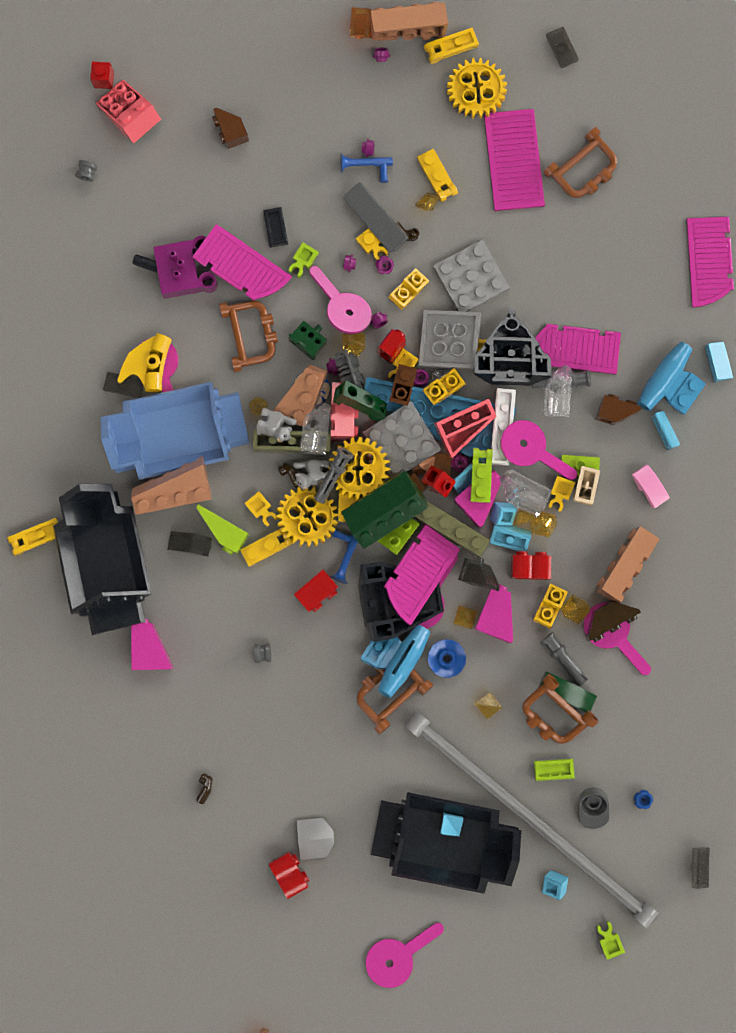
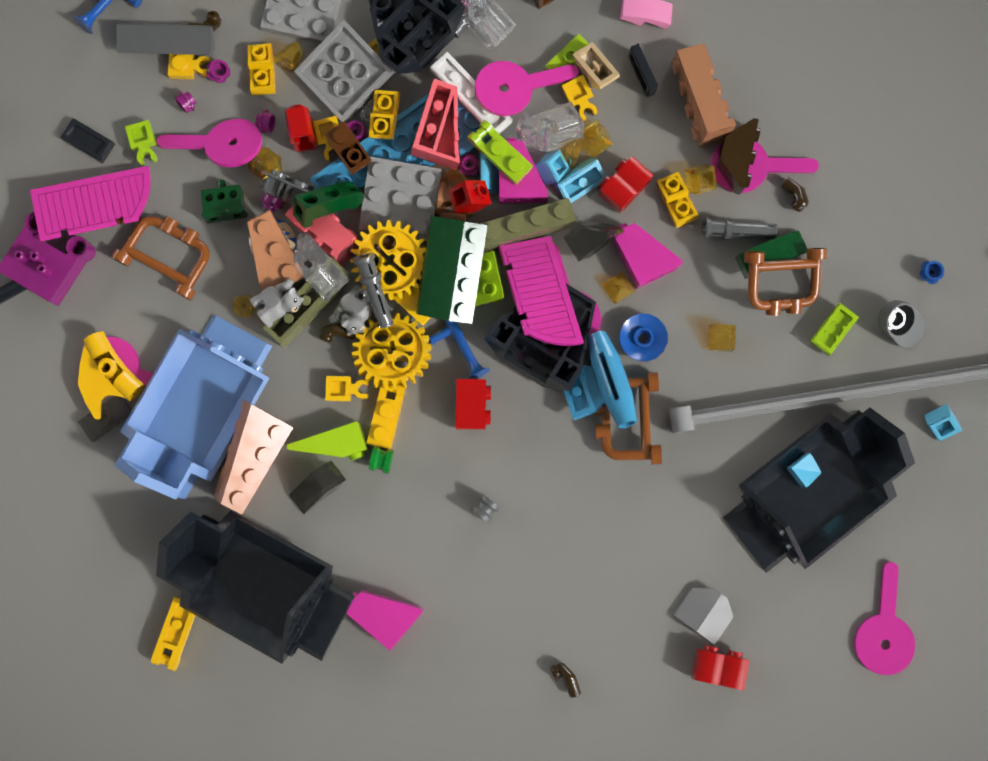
camera: 50 degrees left, 0 degrees up
(237, 567) = (381, 459): none -> green wheel
(430, 299) = (289, 56): none -> clear yellow slope
(610, 516) = (642, 70): none -> black tile
(619, 677) = (799, 193): none -> dark brown arm

